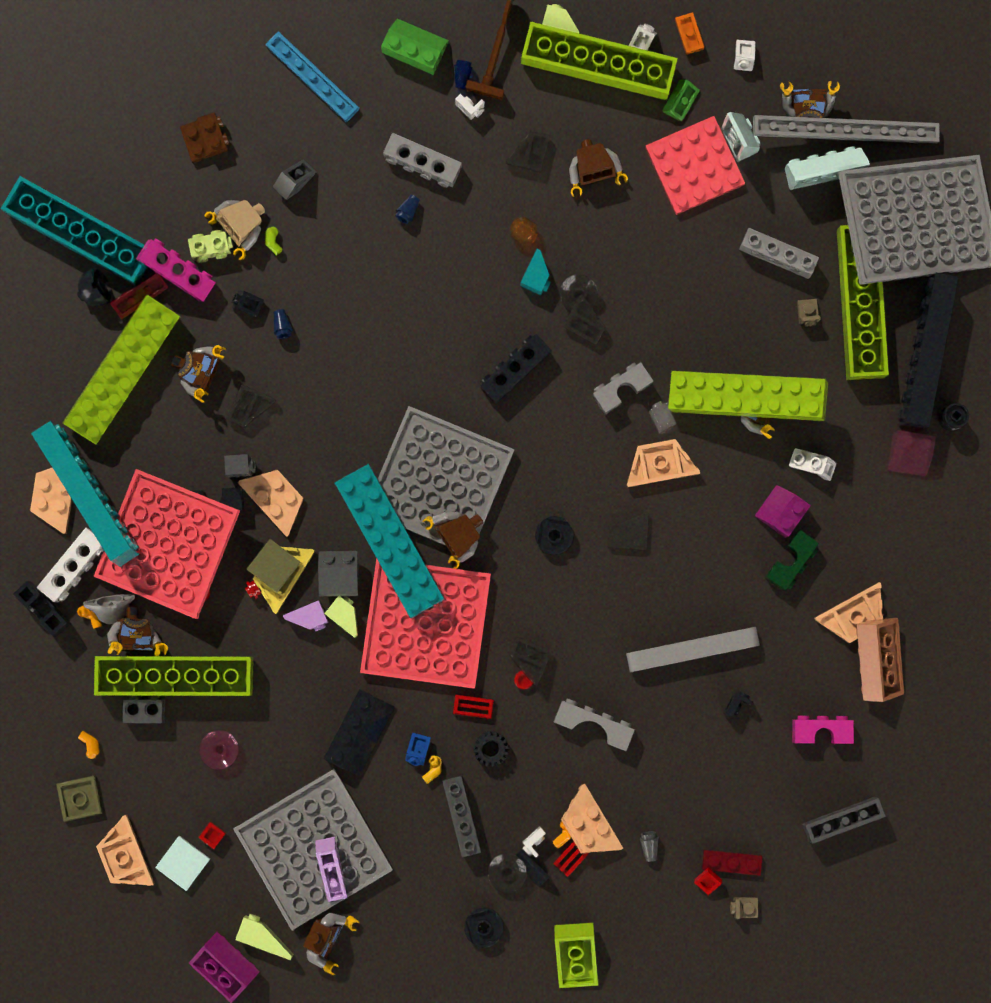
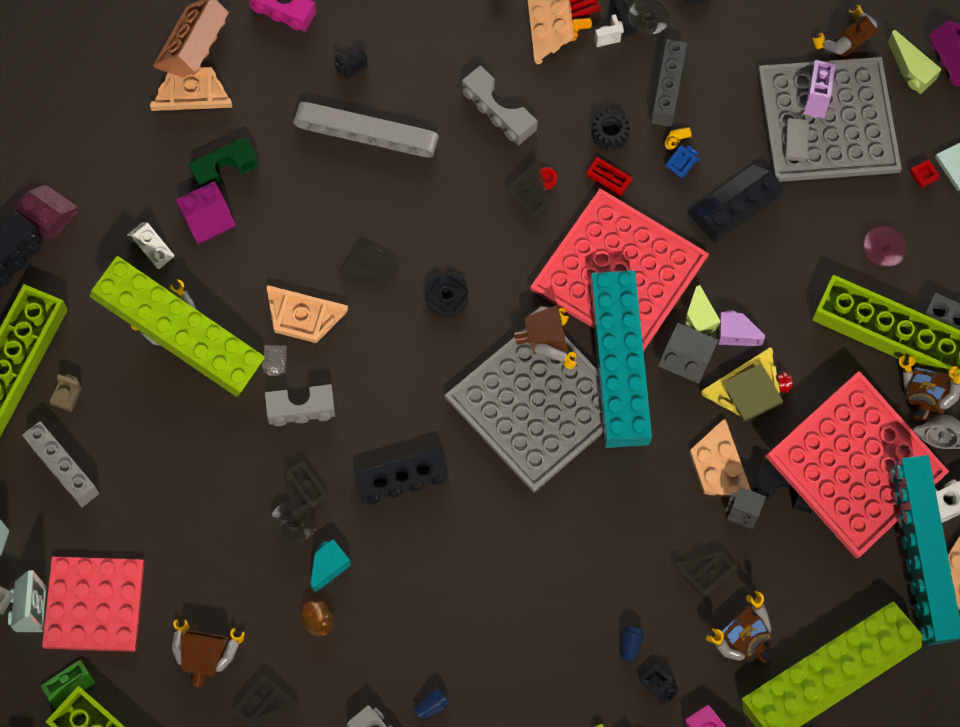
camera: 155 degrees left, 15 degrees down
(330, 811) = (797, 139): none -> light grey tile

